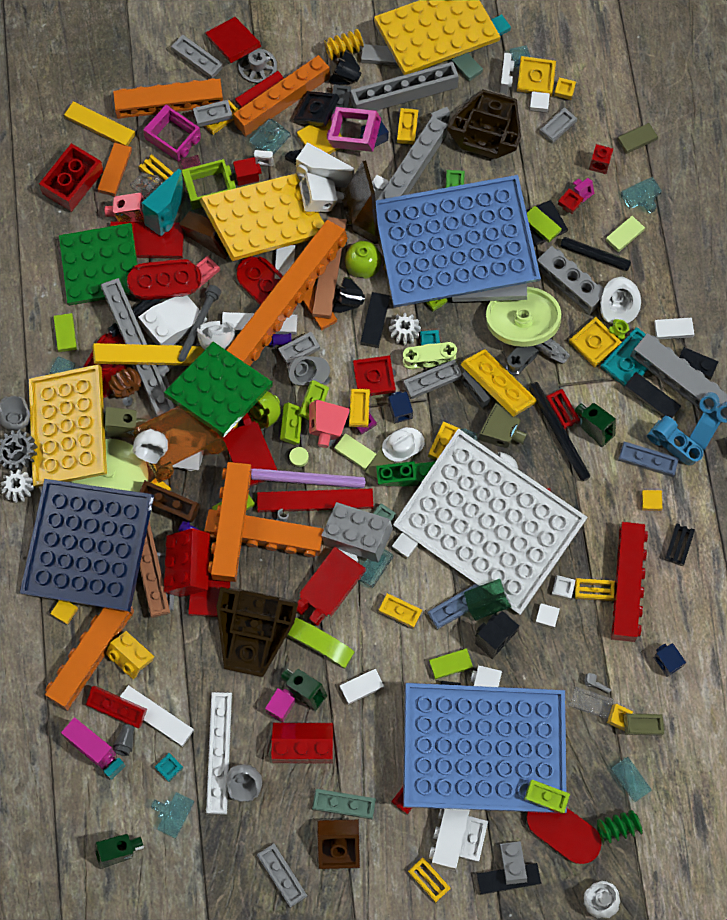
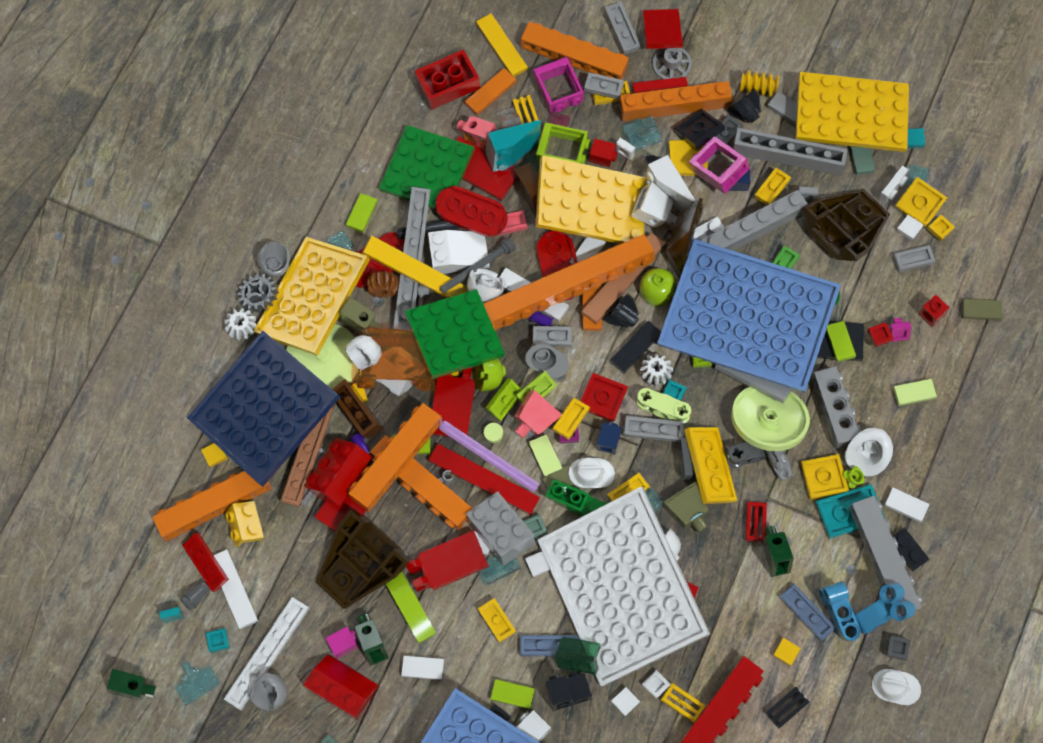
camera: 35 degrees right, 0 degrees up
(89, 743) = (161, 580): dark pink window -> none
(559, 431) = (740, 541): black axle -> none
(595, 253) = (874, 394): black axle -> none
(642, 194) = (954, 364): clear light blue hinge -> none
(652, 396) = (846, 557): black tile -> none

